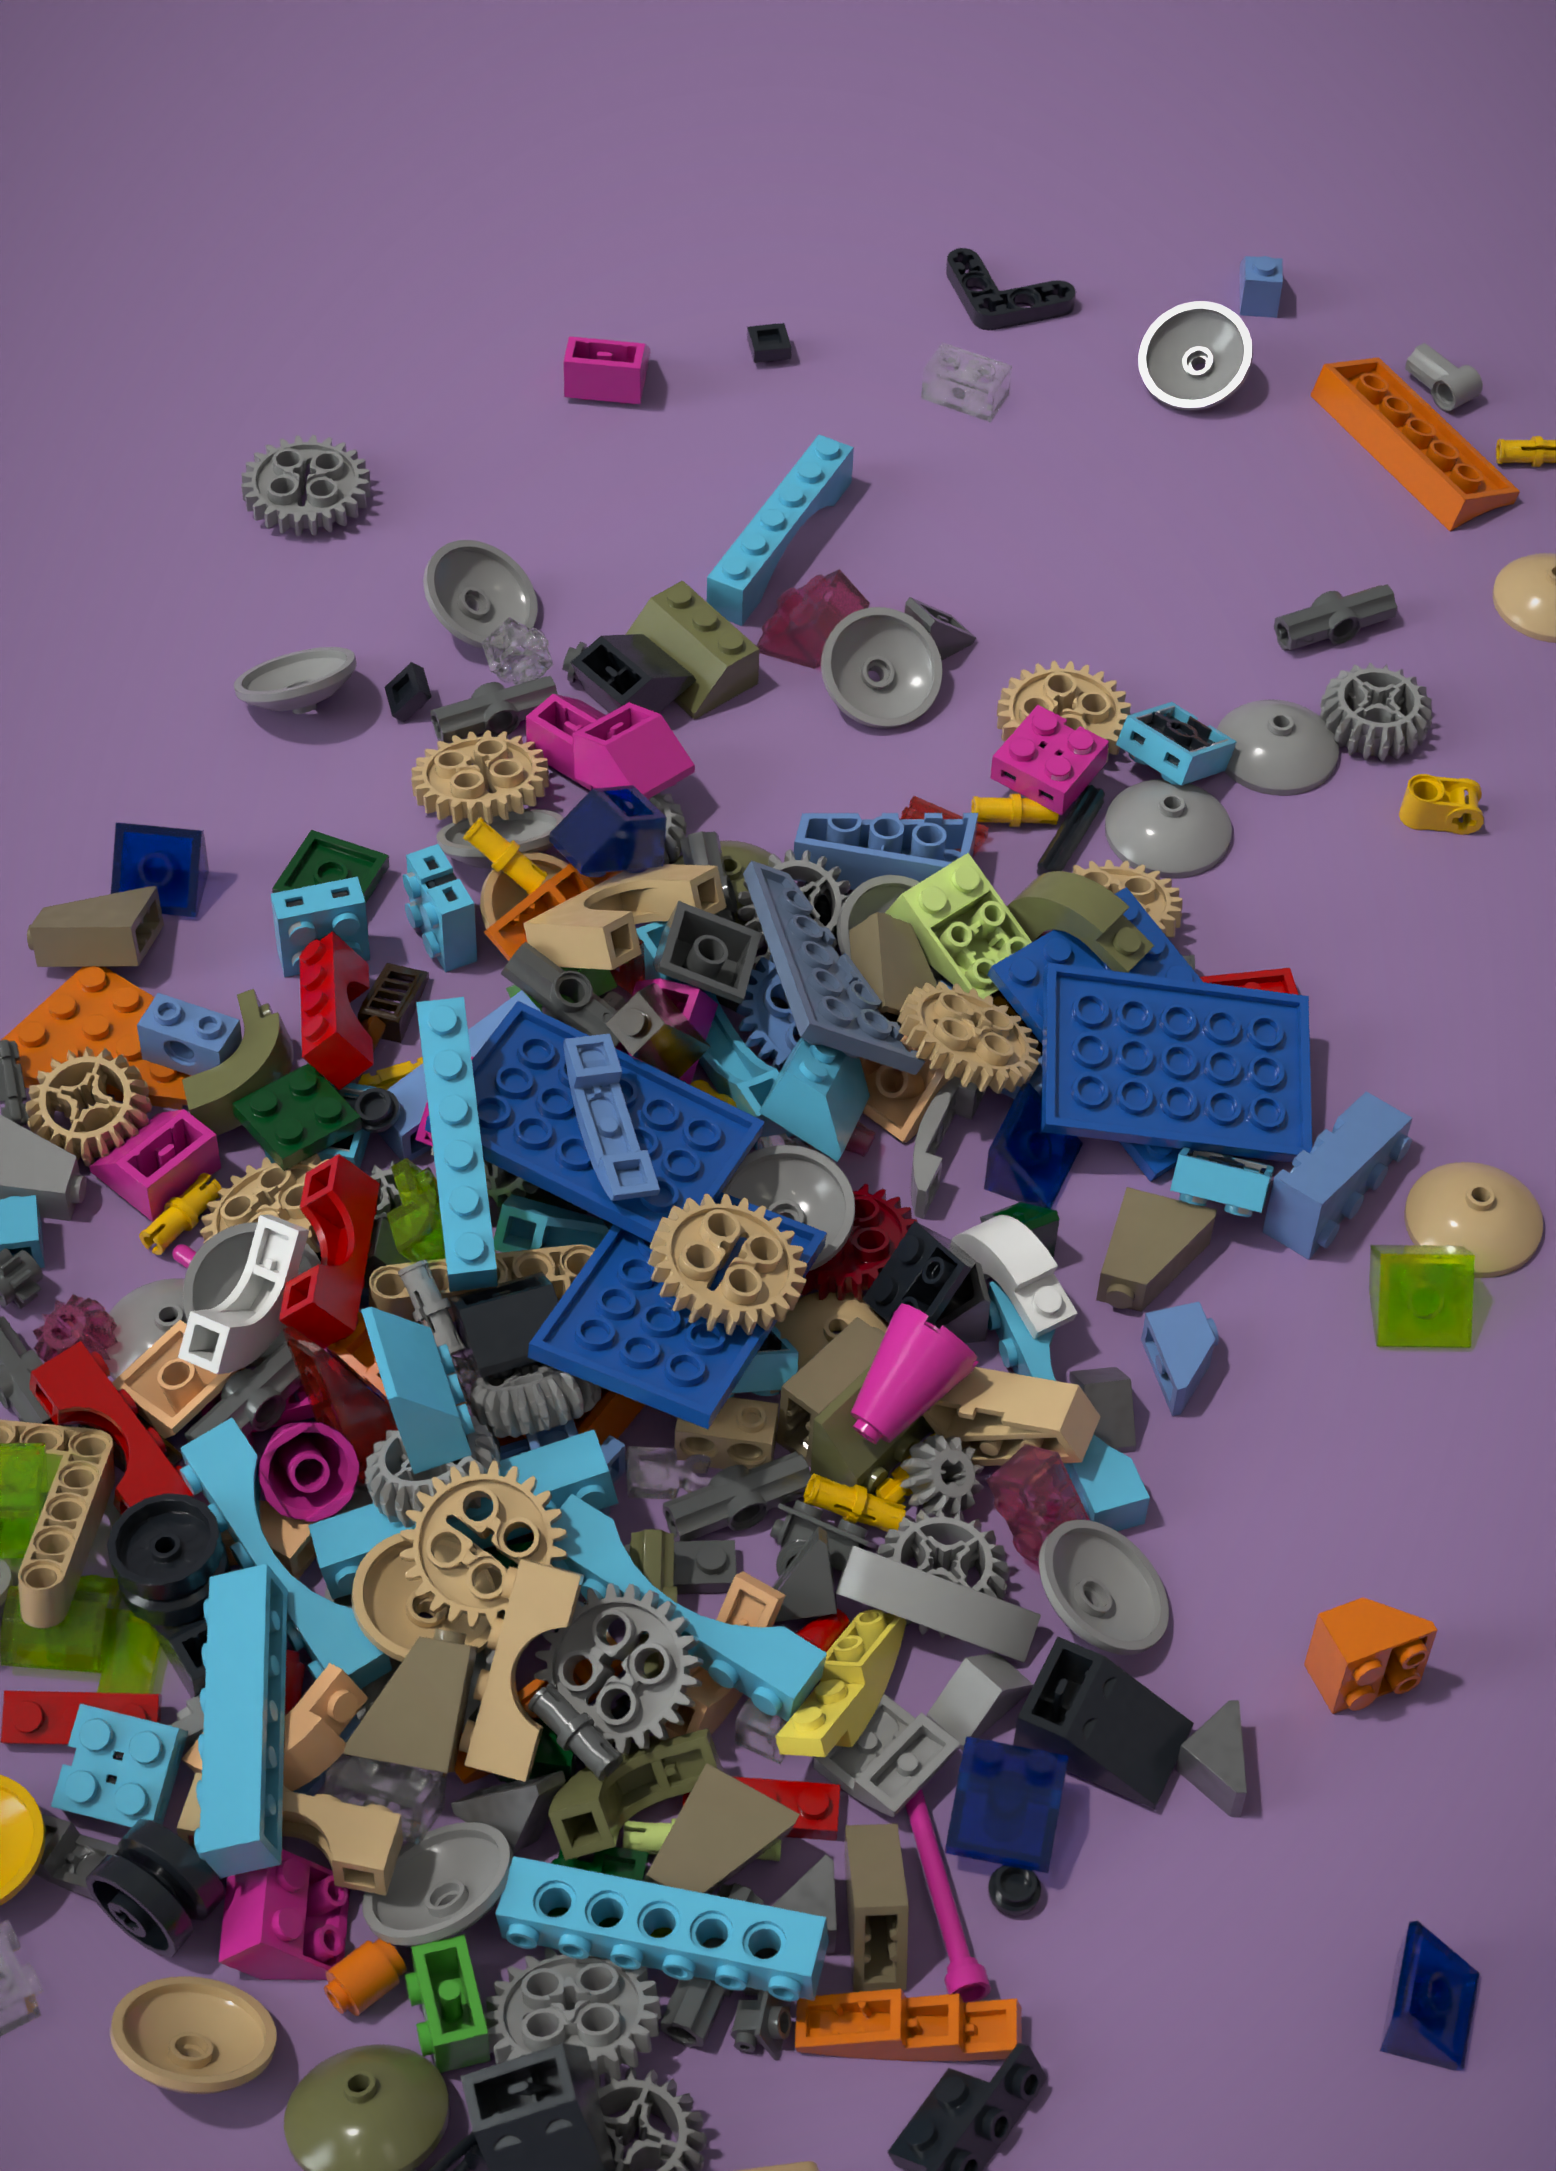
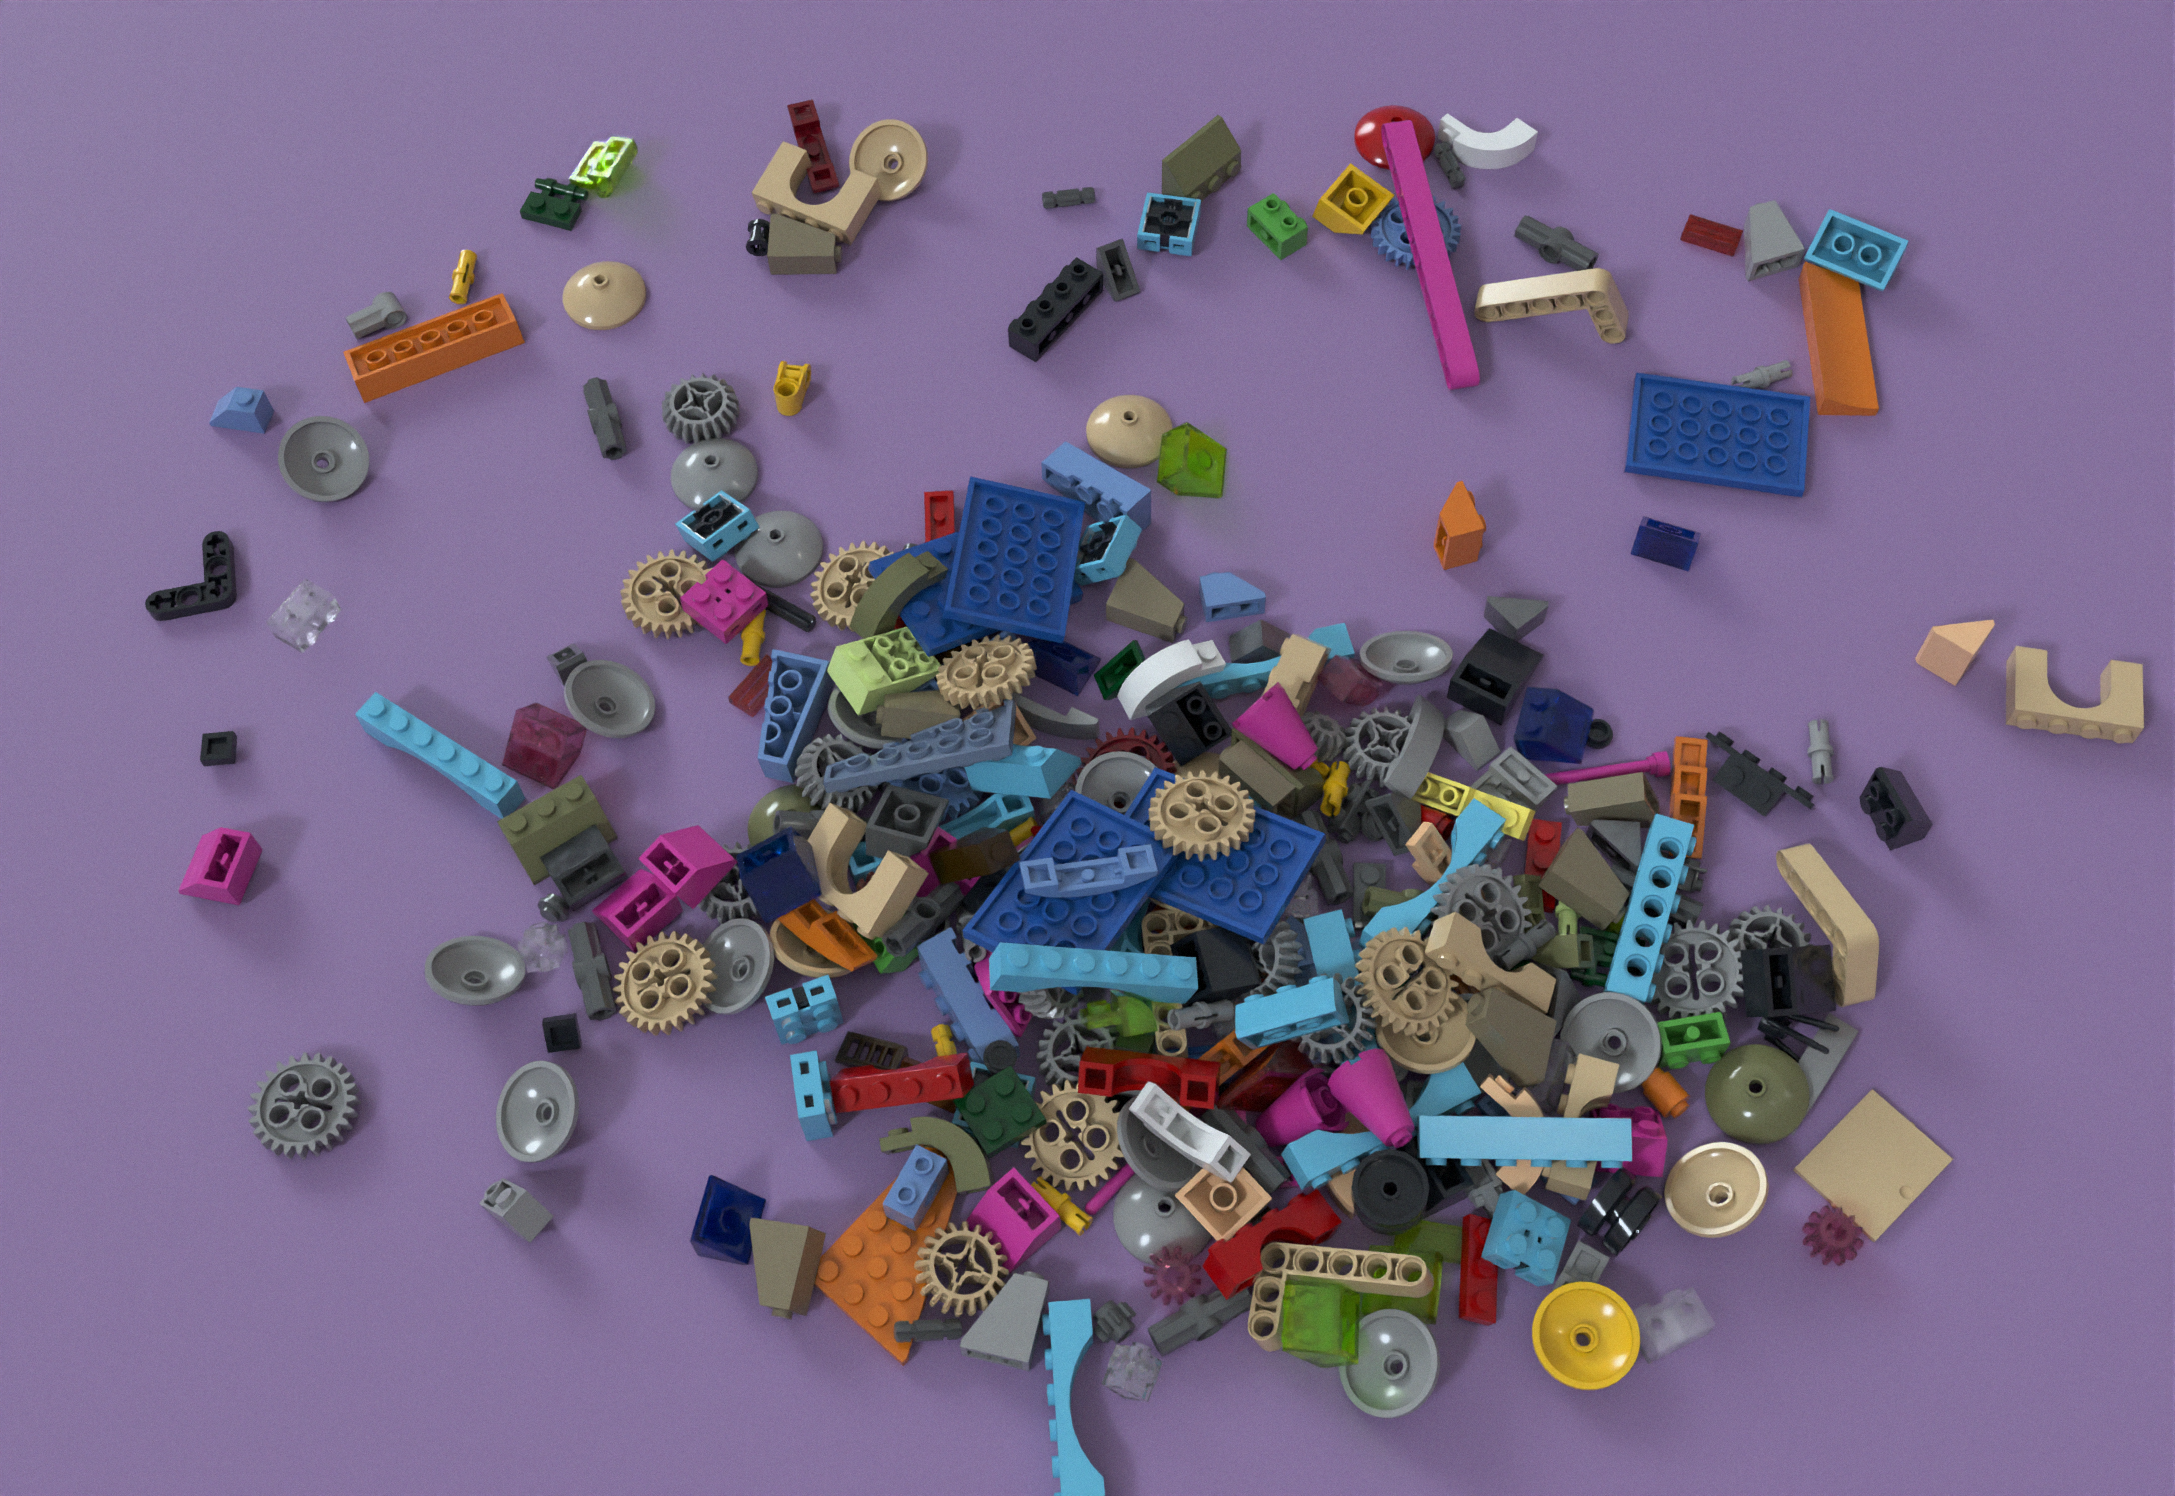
camera: 80 degrees left, 10 degrees up
(175, 679) = (516, 1209): none -> light grey slope
(301, 1516) = (1374, 1097): none -> dark pink cone
(332, 859) = (746, 1095): dark green plate -> none
(505, 855) = (785, 950): yellow pin -> none

